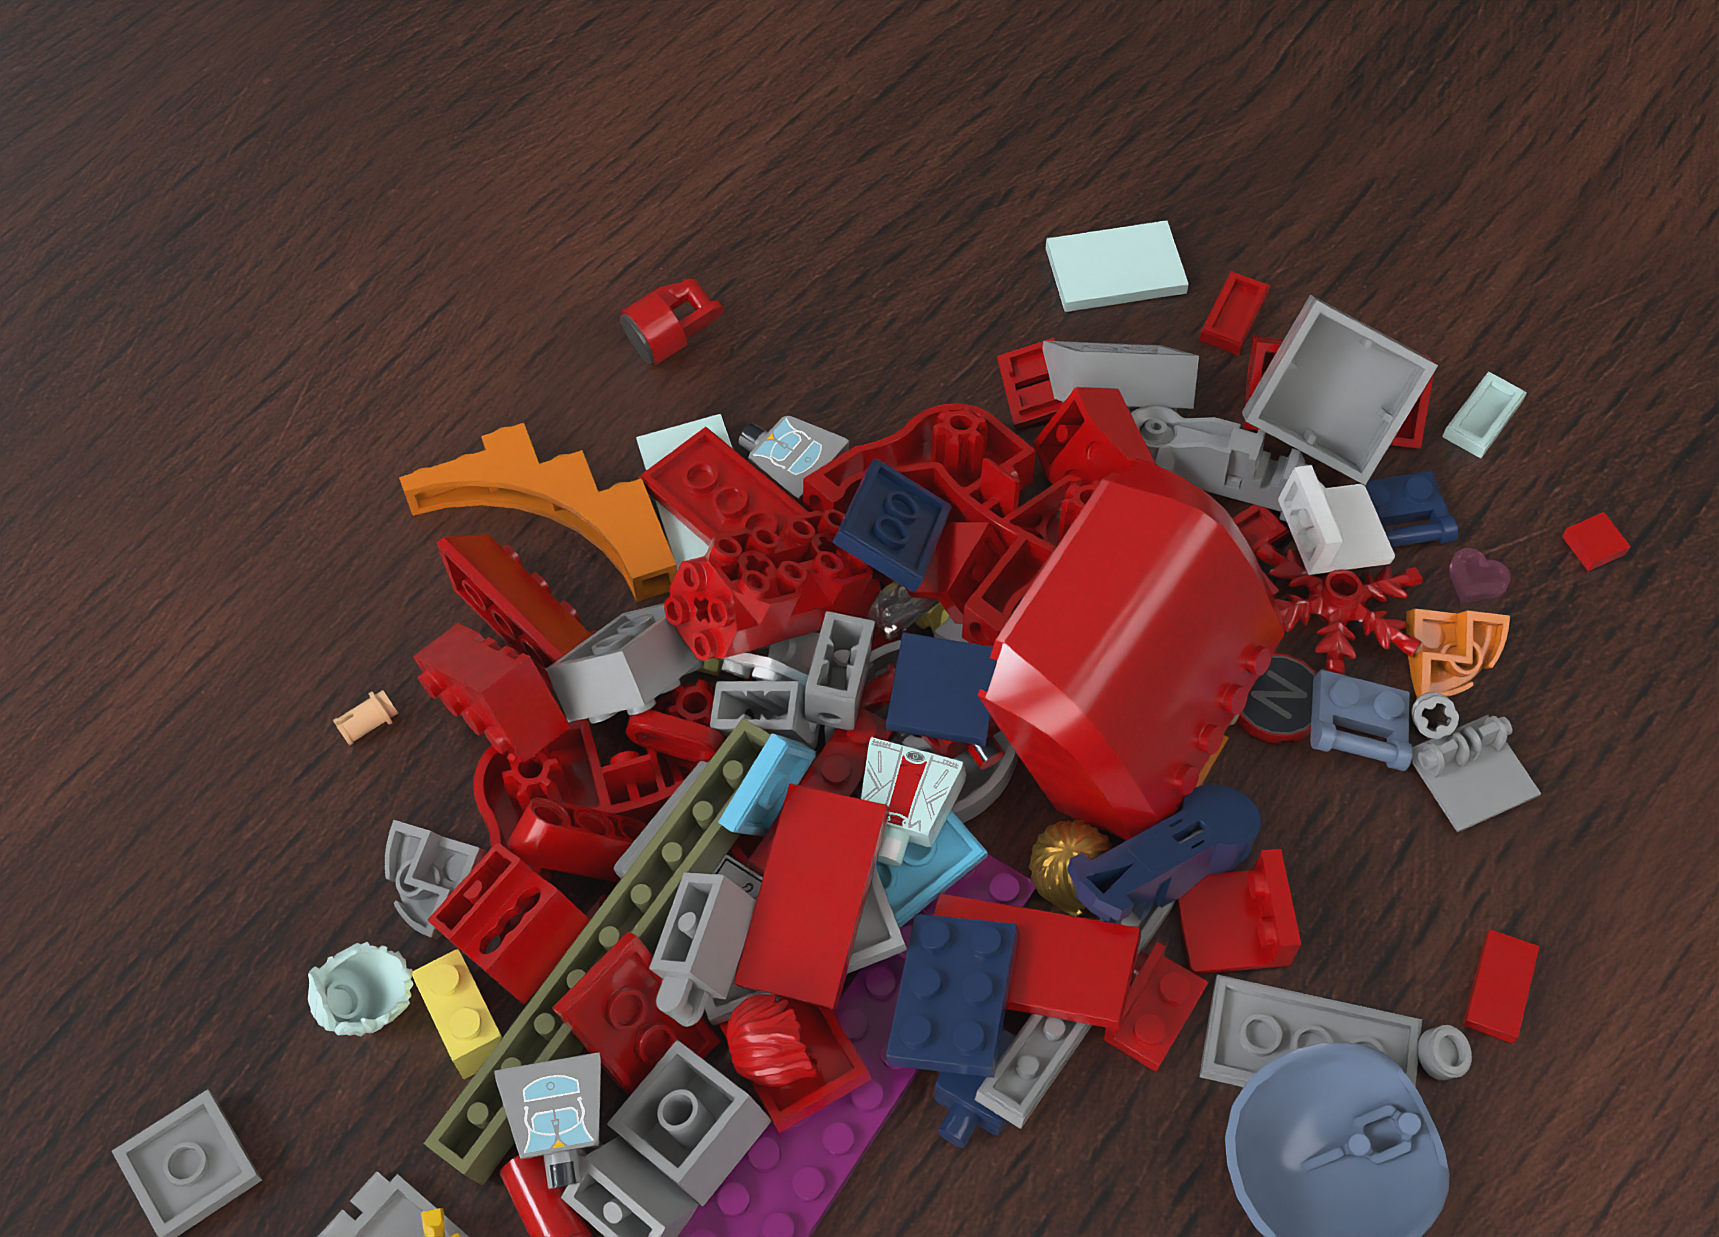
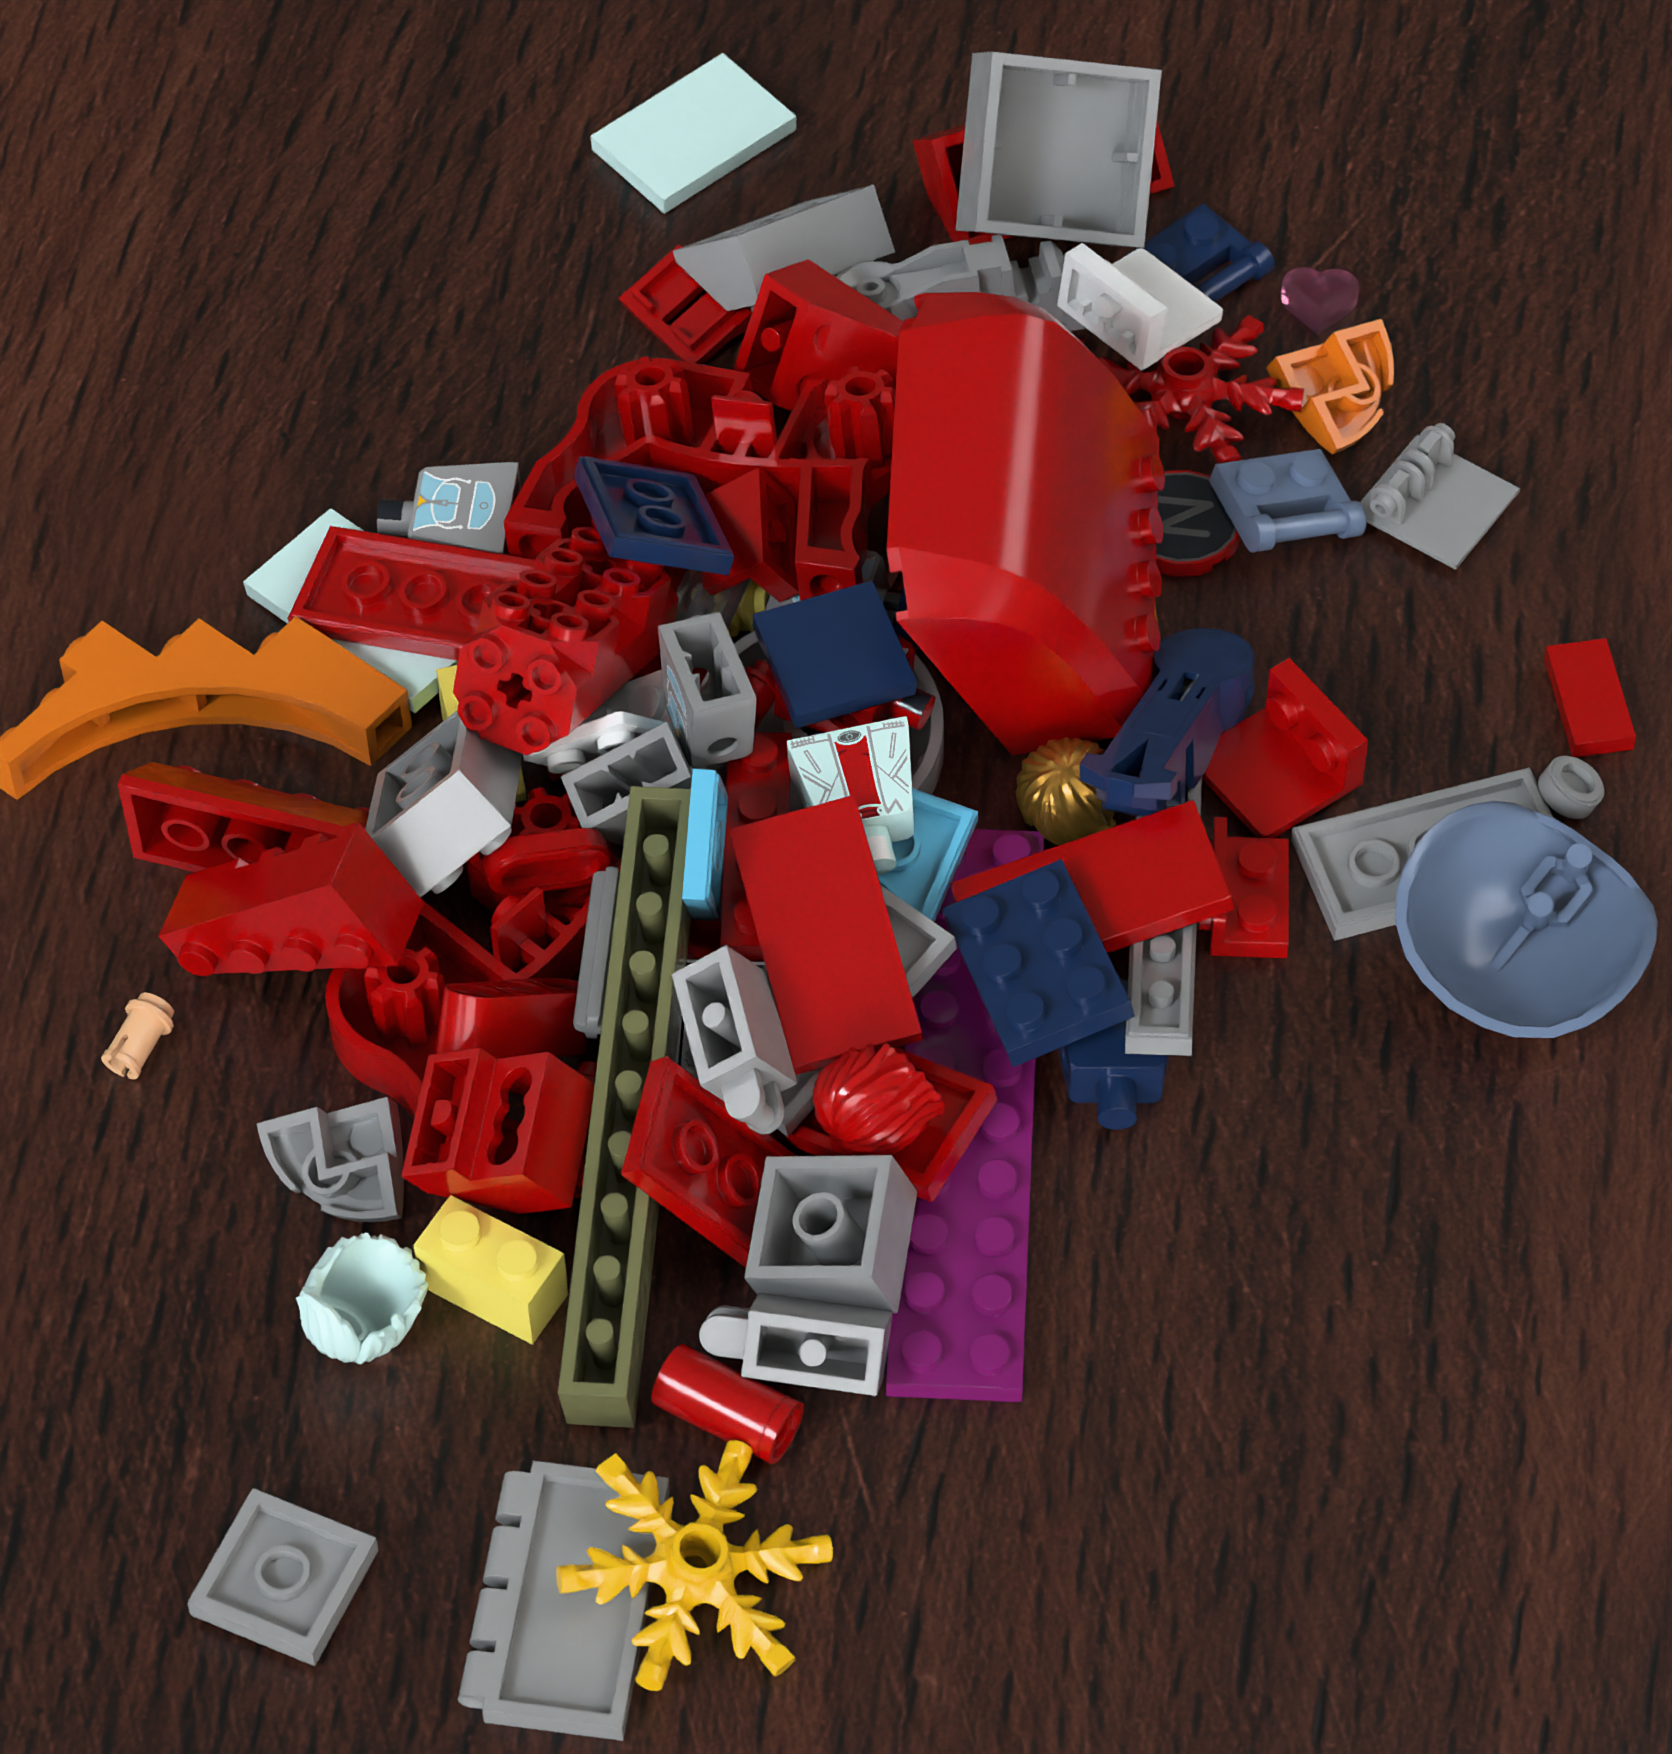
camera: 30 degrees left, 5 degrees down
(554, 1112) = (690, 1275): light grey torso -> none
(655, 328) = (182, 443): red piece -> none
(1234, 313) = (868, 127): red tile -> none
(1439, 728) = (1353, 472): light grey bush -> none
(1484, 414) = (1223, 117): light aqua tile -> none
(1596, 541) = (1425, 201): red tile -> none

